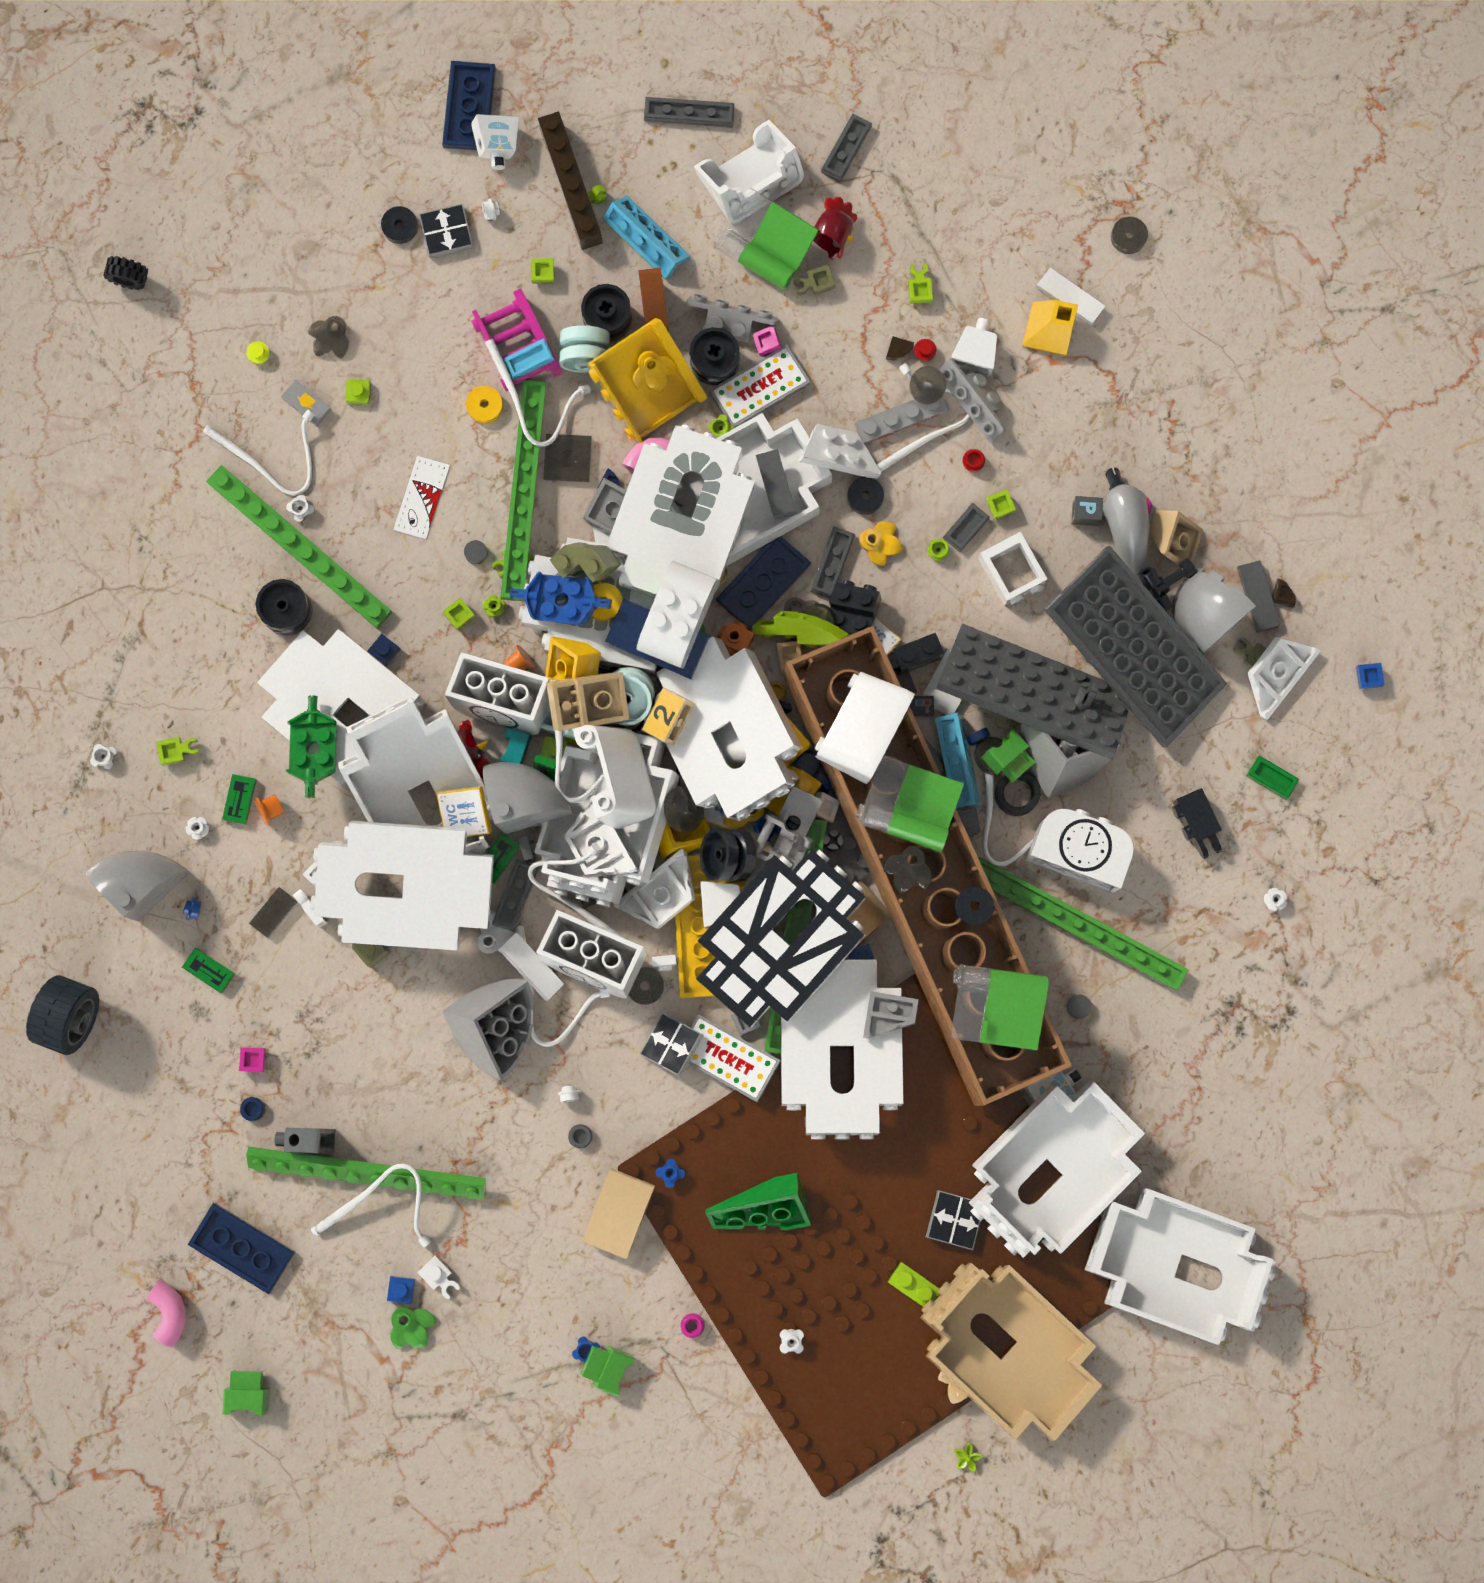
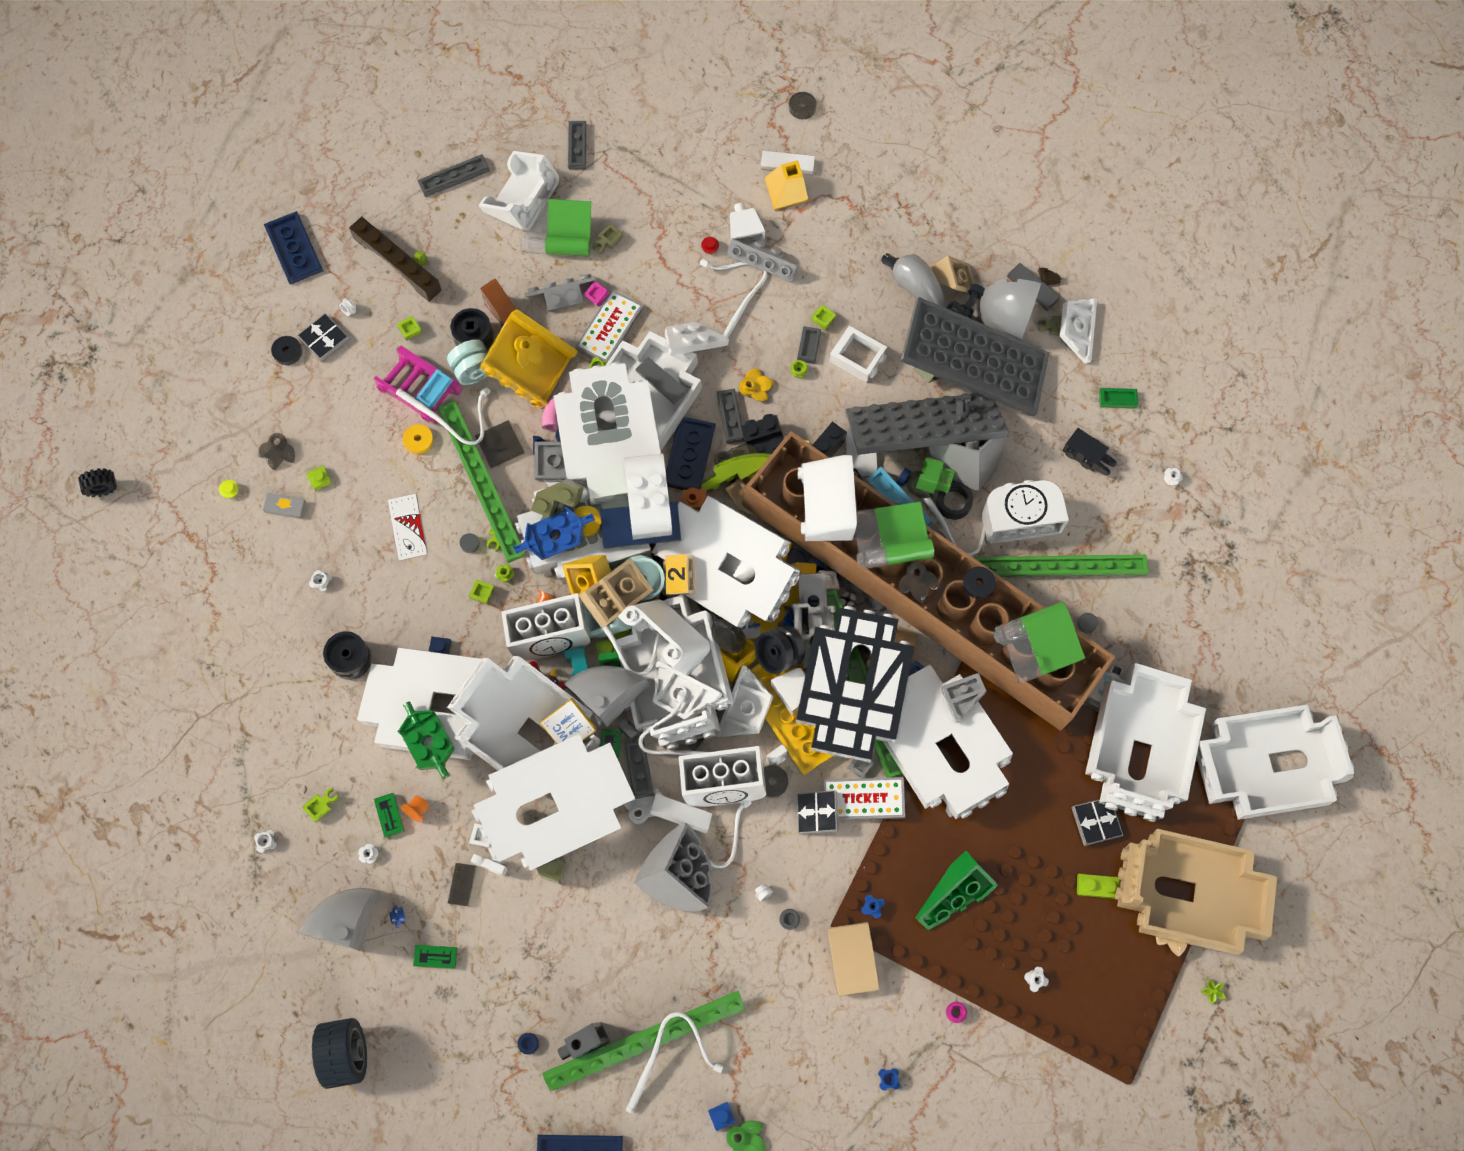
camera: 30 degrees left, 10 degrees down
(228, 444) = (249, 565): white piece -> none
(252, 1059) = (507, 1005): dark pink plate -> none
(299, 547) = (334, 608): bright green plate -> none
(437, 1274) = (742, 1087): white plate -> none
(495, 138) = (325, 256): white torso -> none
(606, 1368) = (913, 1082): bright green piece -> none
(644, 237) = (468, 268): medium azure fence -> none
(713, 343) = (566, 320): black wheel -> none
(836, 225) = (600, 193): dark red piece -> none
(862, 505) = (723, 367): black piece -> none
(898, 348) = (691, 253): dark brown tile -> none
(898, 419) = (720, 296): light grey plate -> none
(920, 287) = (681, 206): lime plate -> none
(930, 375) = (723, 271): clear smoke piece -> none
(973, 460) = (787, 298): red plate -> none
(1087, 511) = (885, 290): dark grey brick -> none
(1370, 676) = (1139, 298): blue plate -> none

